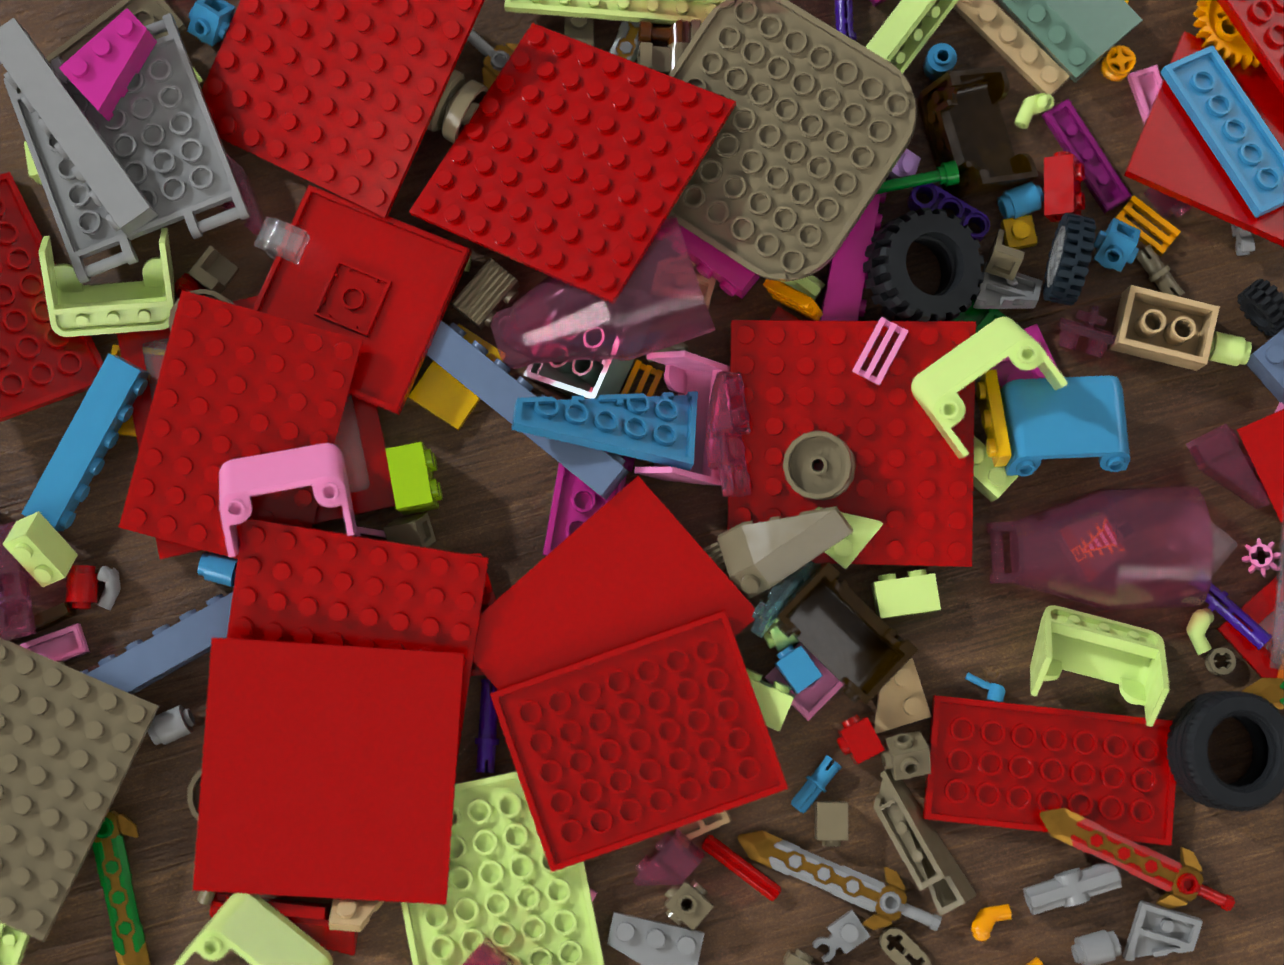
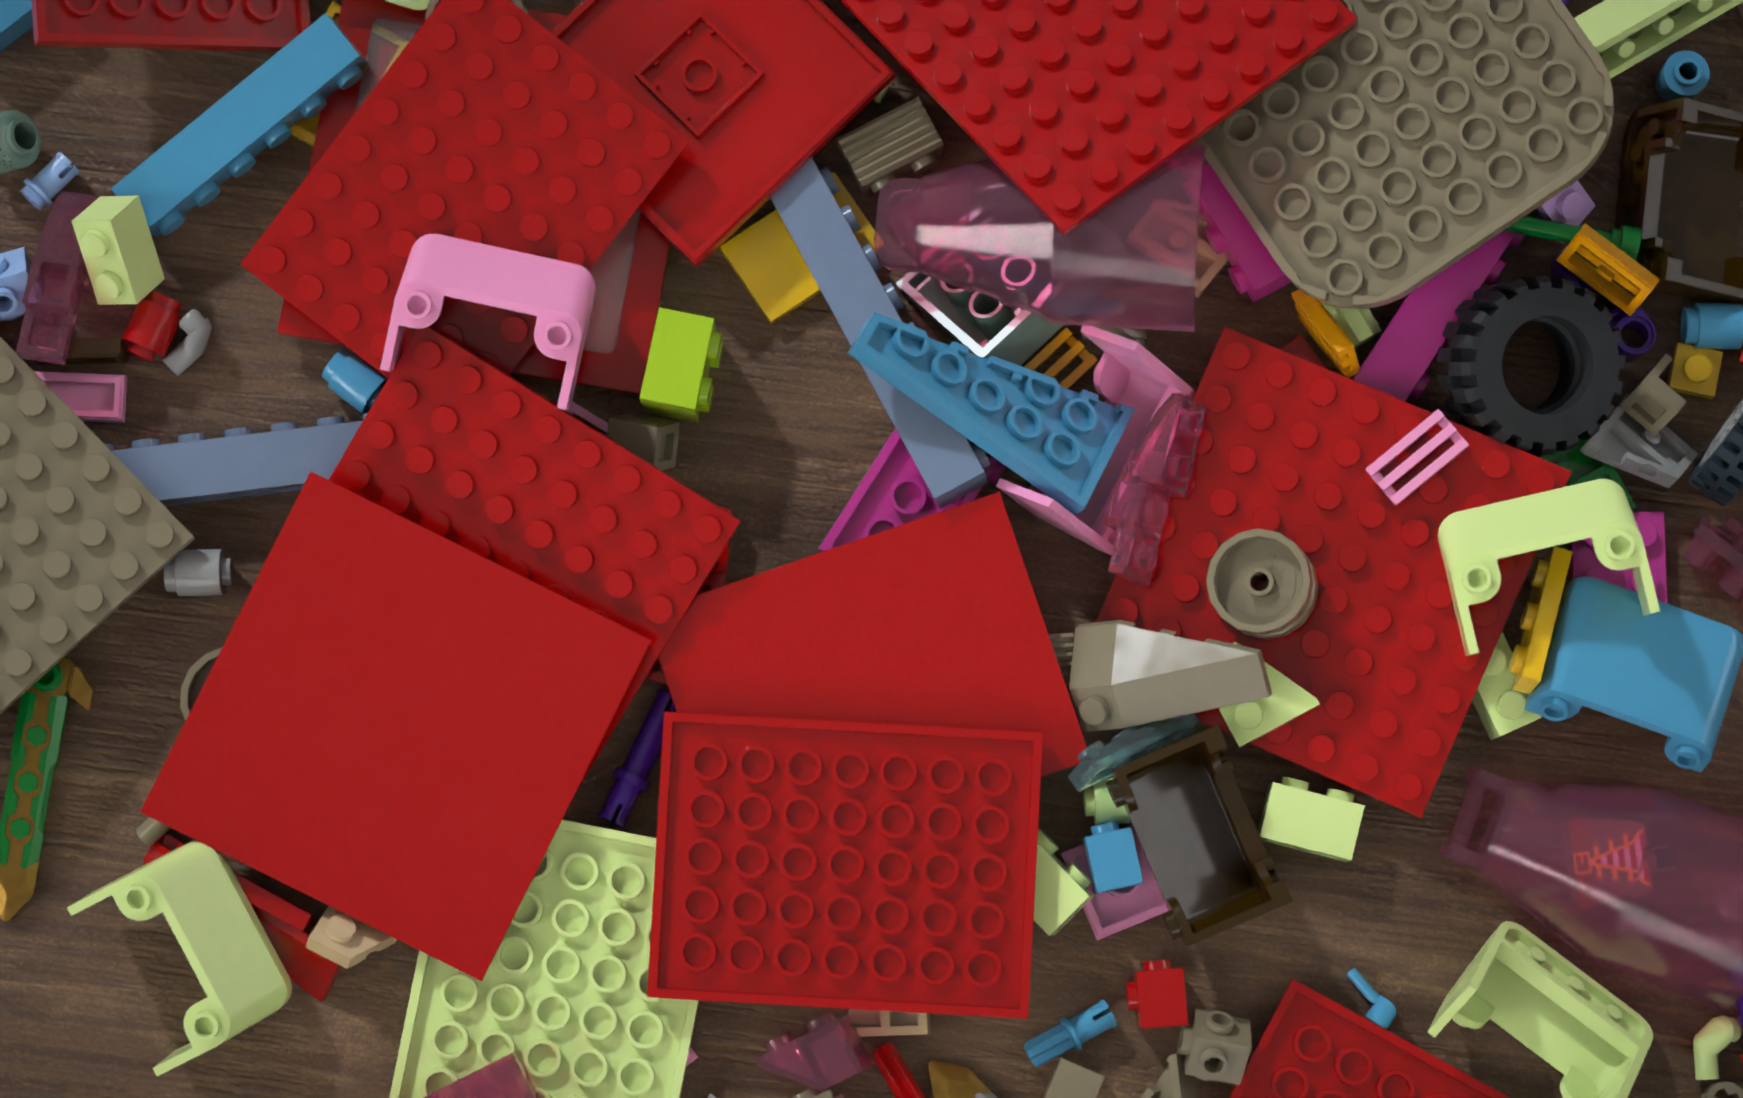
camera: 20 degrees right, 0 degrees up
(901, 700) = (1242, 965): tan wing -> none
(946, 188) = (1610, 265): none -> light orange tile

